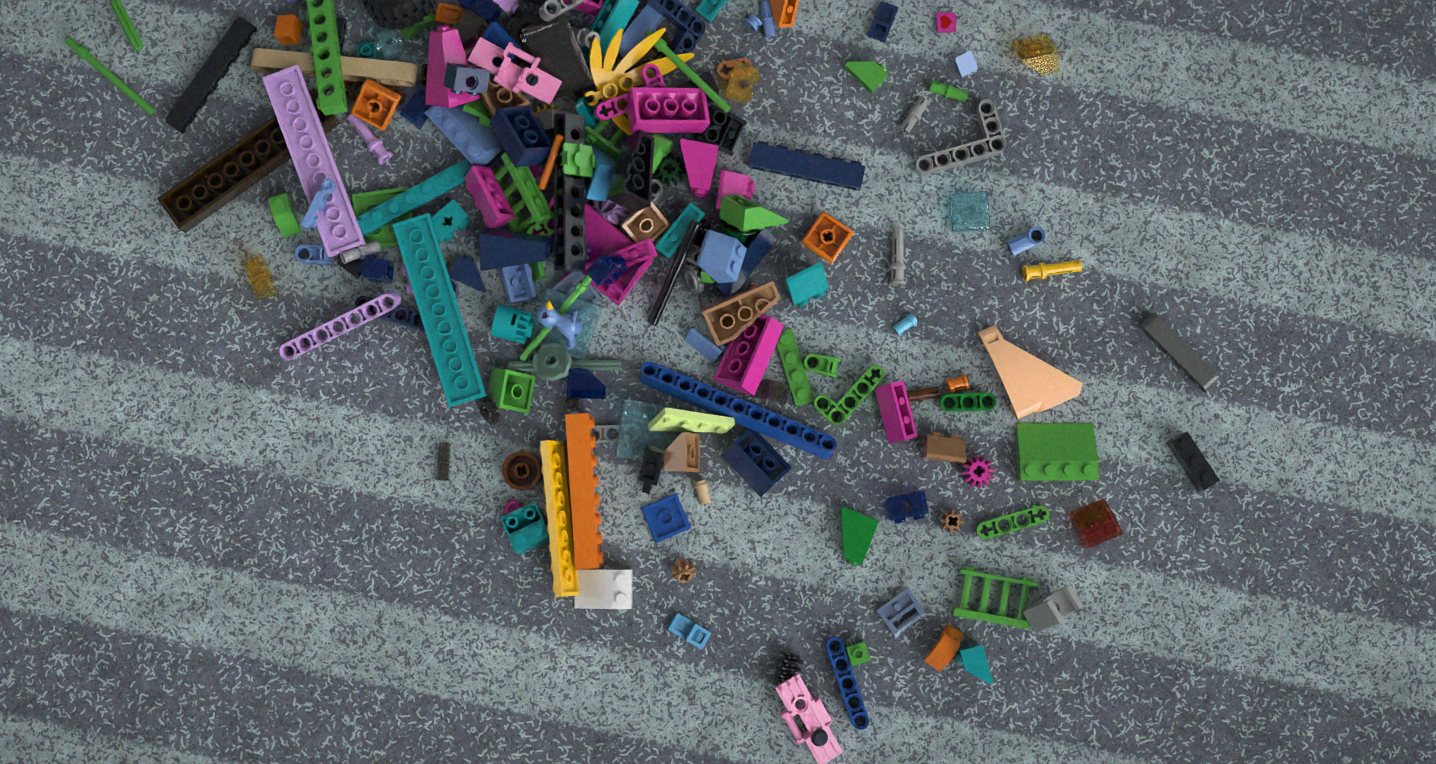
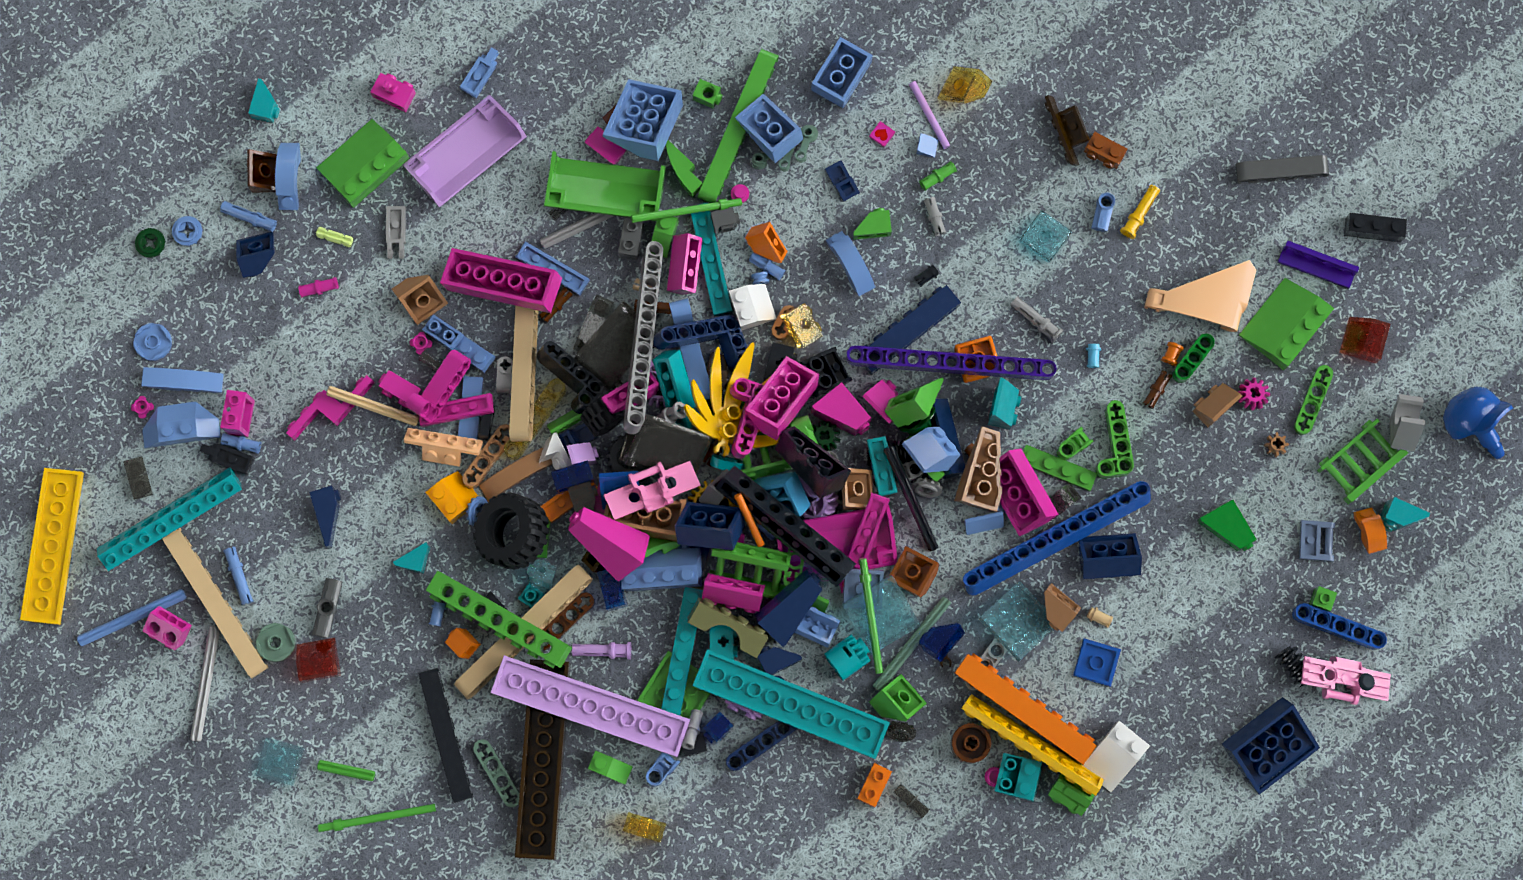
camera: 50 degrees left, 5 degrees down
(210, 135) = (494, 775): none -> sand green beam
(318, 203) = (631, 729): medium blue hinge -> none
(331, 326) = (737, 784): lavender beam -> none
(364, 104) = (592, 627): orange brick -> none
(431, 423) = (874, 785): none -> orange brick
(455, 192) = (706, 615): none -> olive arch
(458, 73) = (631, 530): dark blue brick -> none
(542, 579) = (1070, 795): none -> bright green brick
(556, 371) = (914, 649): sand green plate -> none
(566, 324) = (884, 613): medium blue animal -> none
(577, 159) = (767, 497): bright green piece -> none
(607, 269) = (870, 545): clear blue brick -> none
(620, 323) = (914, 572): none -> dark orange slope
(651, 467) = (1051, 639): black hinge -> none
(660, 45) = (726, 362): bright green bar -> none
(683, 570) = (1150, 682): medium nougat gear -> none
(689, 421) = (1038, 580): yellowish green wing -> none
(689, 630) = (1200, 716): dark azure slope -> none
(710, 702) = (1271, 744): none -> dark blue slope
(726, 33) = (752, 305): none -> white slope
(801, 208) = (959, 358): none -> dark purple beam
(821, 80) = (851, 262): none -> medium blue arch
(863, 146) = (928, 274): none -> black pin
(896, 412) = (1158, 418): dark pink brick -> none
(918, 504) = (1240, 458): clear blue brick -> none
(967, 149) = (997, 198): light grey beam -> none
(992, 45) = (930, 116): none -> lavender bar
(1072, 159) = (1070, 128): none -> dark brown bracket
(1078, 203) = (1105, 150): none -> dark orange bracket
(1104, 657) = (1476, 413): none -> blue piece
(1124, 440) = (1317, 264): none -> dark purple fence

